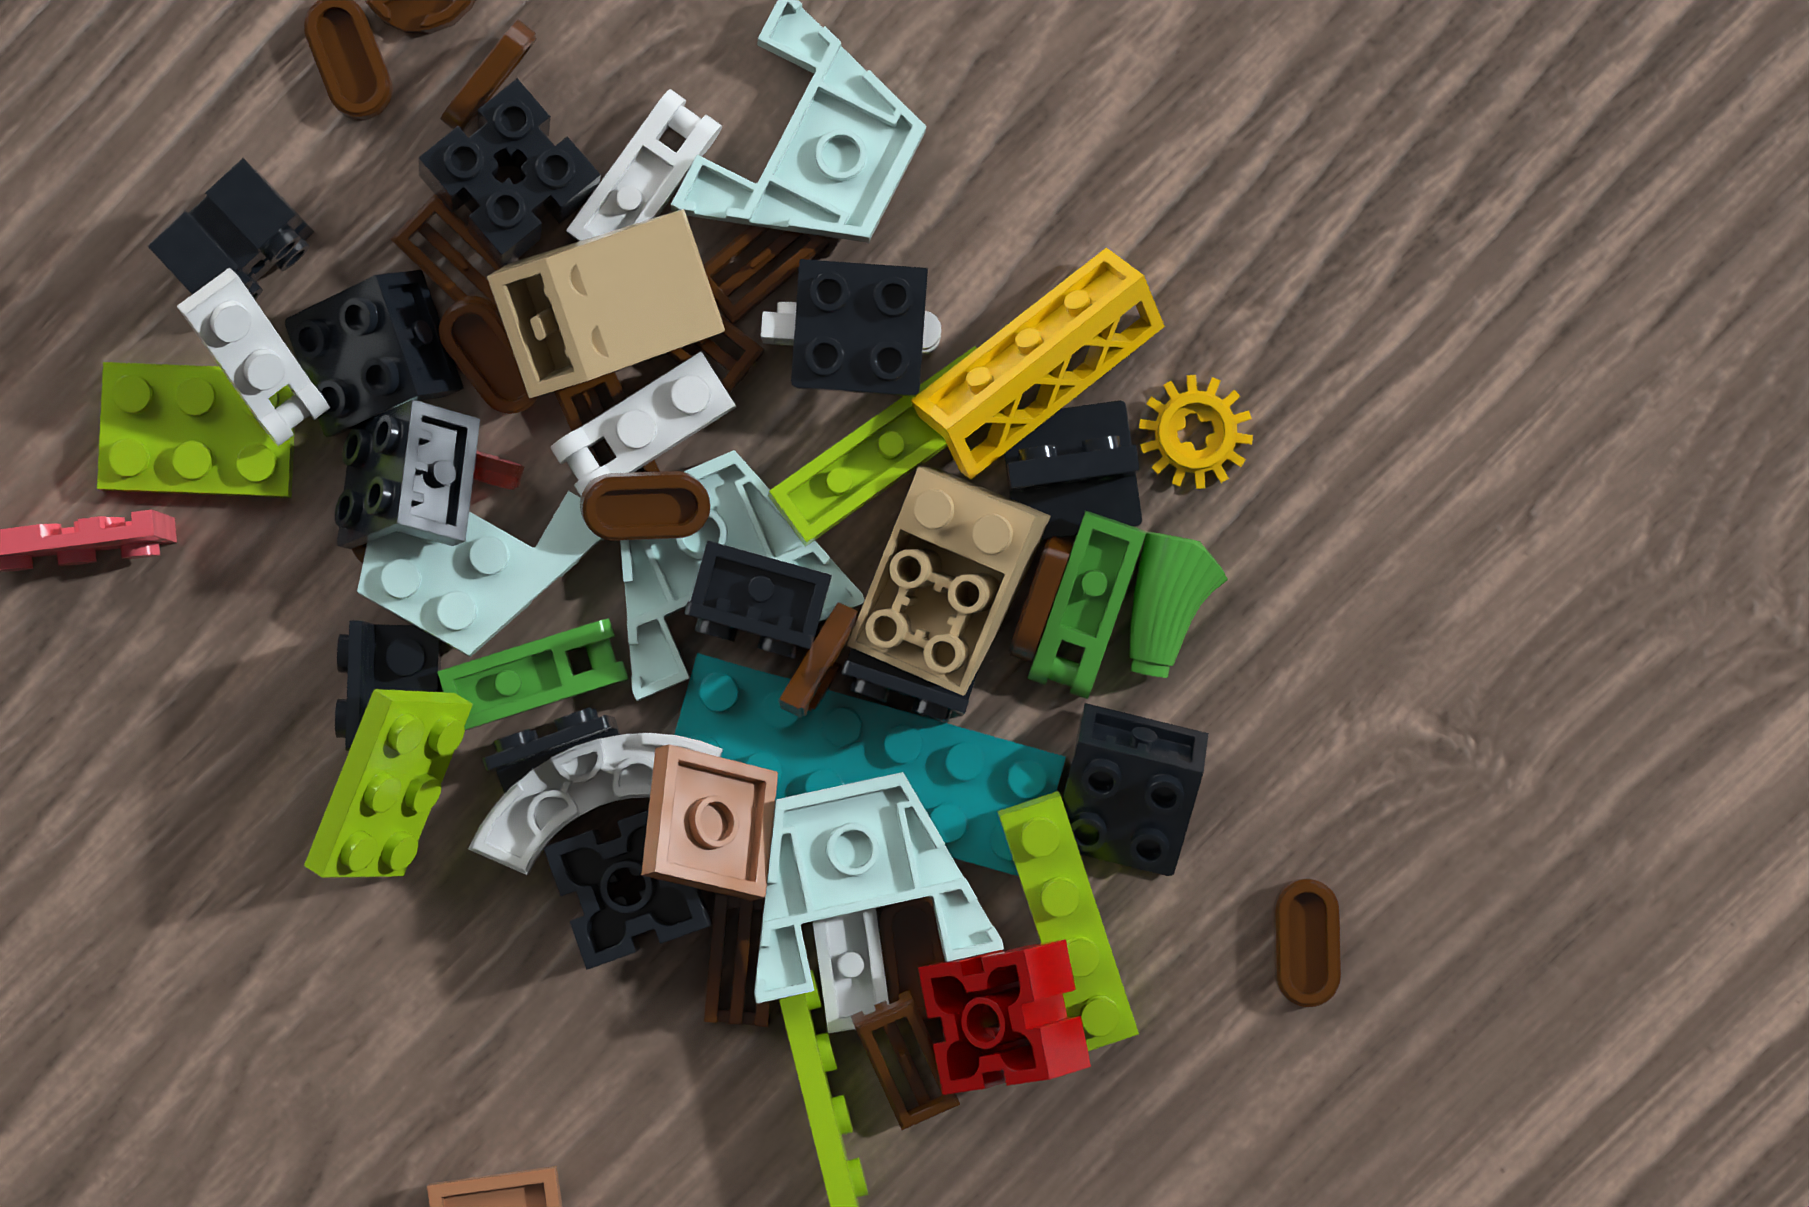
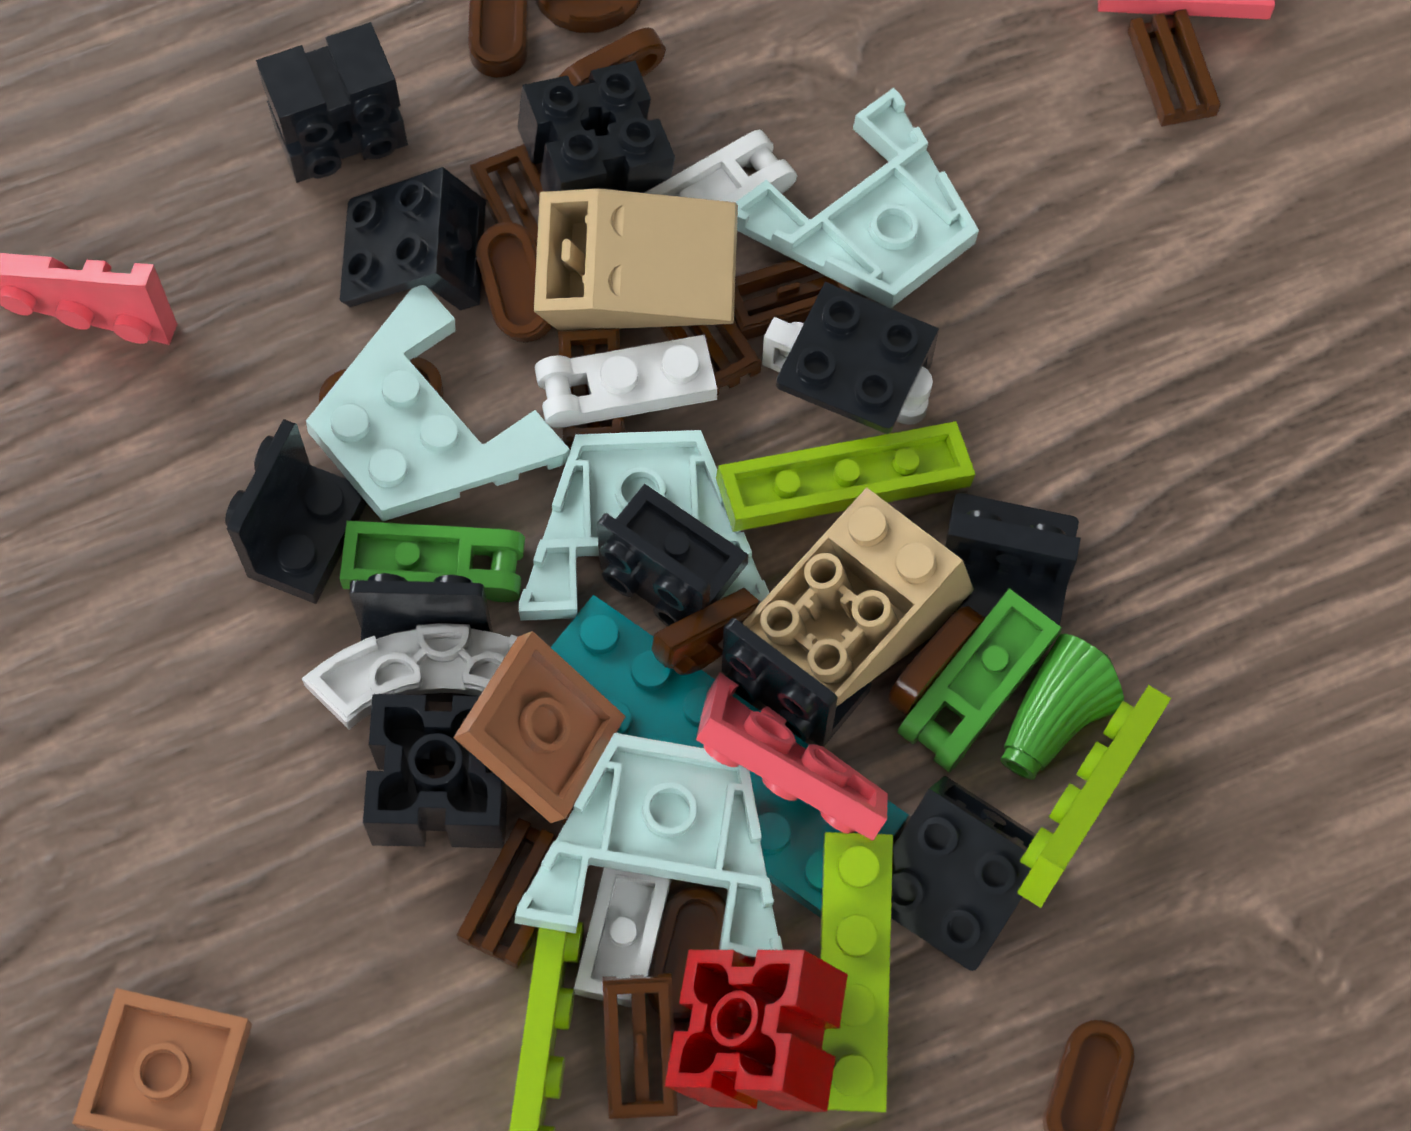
camera: 20 degrees right, 20 degrees down
(186, 434) = (234, 257): lime plate -> none
(252, 354) = (305, 186): white plate -> none
(388, 784) = (253, 587): lime plate -> none
(408, 476) = (400, 335): black bracket -> none
(497, 471) = (473, 371): clear red tile -> none
(645, 505) = (599, 438): reddish brown tile -> none
(923, 765) = (769, 749): none -> coral wing
(1038, 351) = (1010, 431): yellow fence -> none
(1207, 409) = (1152, 557): yellow gear -> none
(1220, 713) = (1079, 808): none -> lime plate

